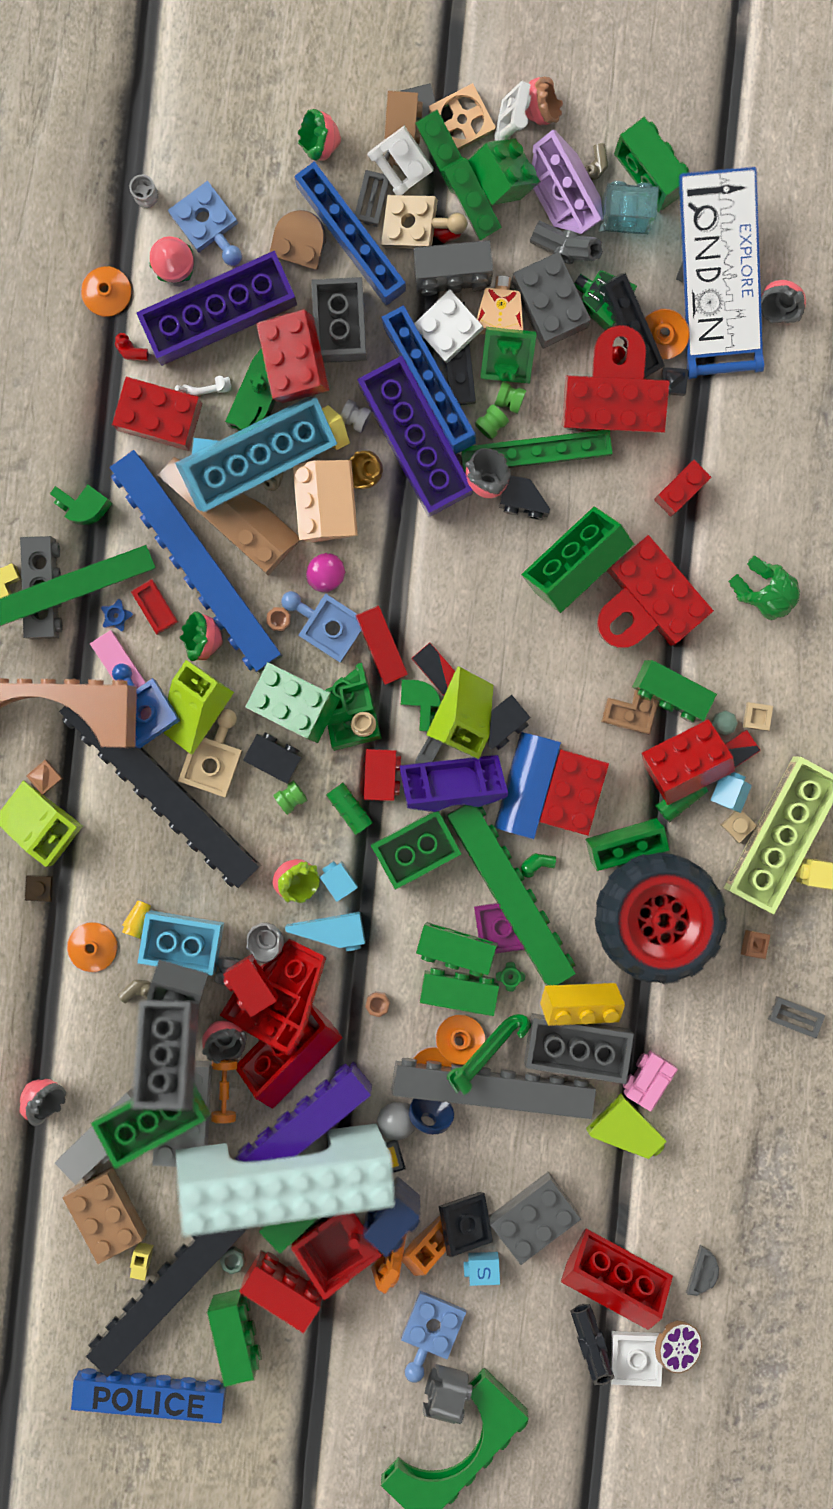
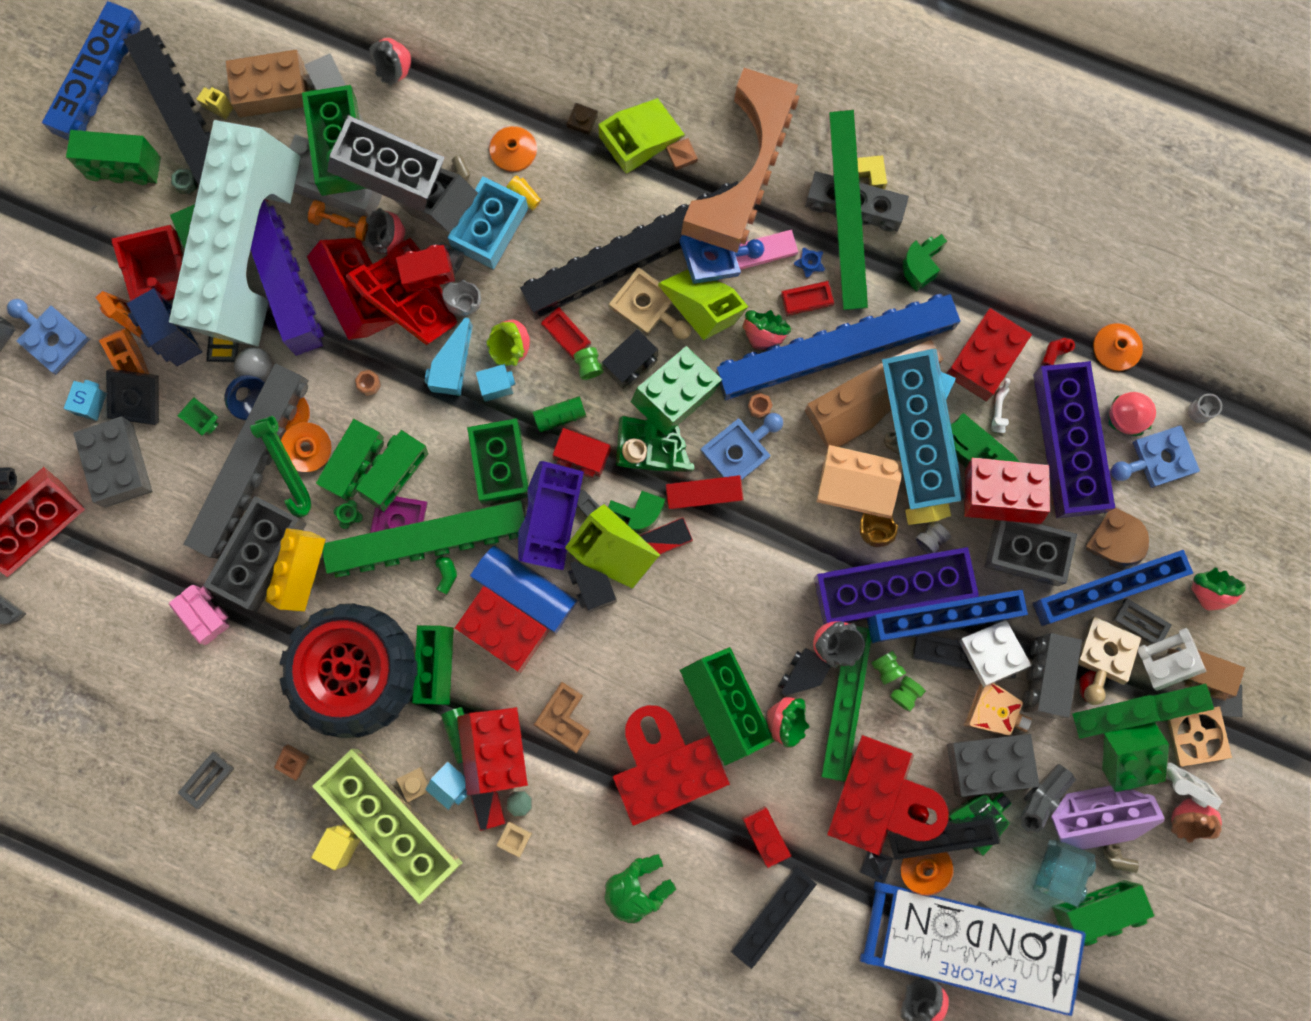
camera: 110 degrees right, 10 degrees down
(265, 830) = (565, 332): none -> red tile
(281, 1291) = (137, 207): red brick -> none
(325, 572) = (790, 463): dark pink hair -> none
(464, 1152) = (199, 417): none -> green bracket
(508, 355) = (950, 704): green plate -> none
(572, 500) = (788, 721): none -> green hair
(627, 1129) = (161, 577): lime slope -> none
(673, 691) = (566, 760): green brick -> none
(750, 460) = (773, 917): none -> black gear

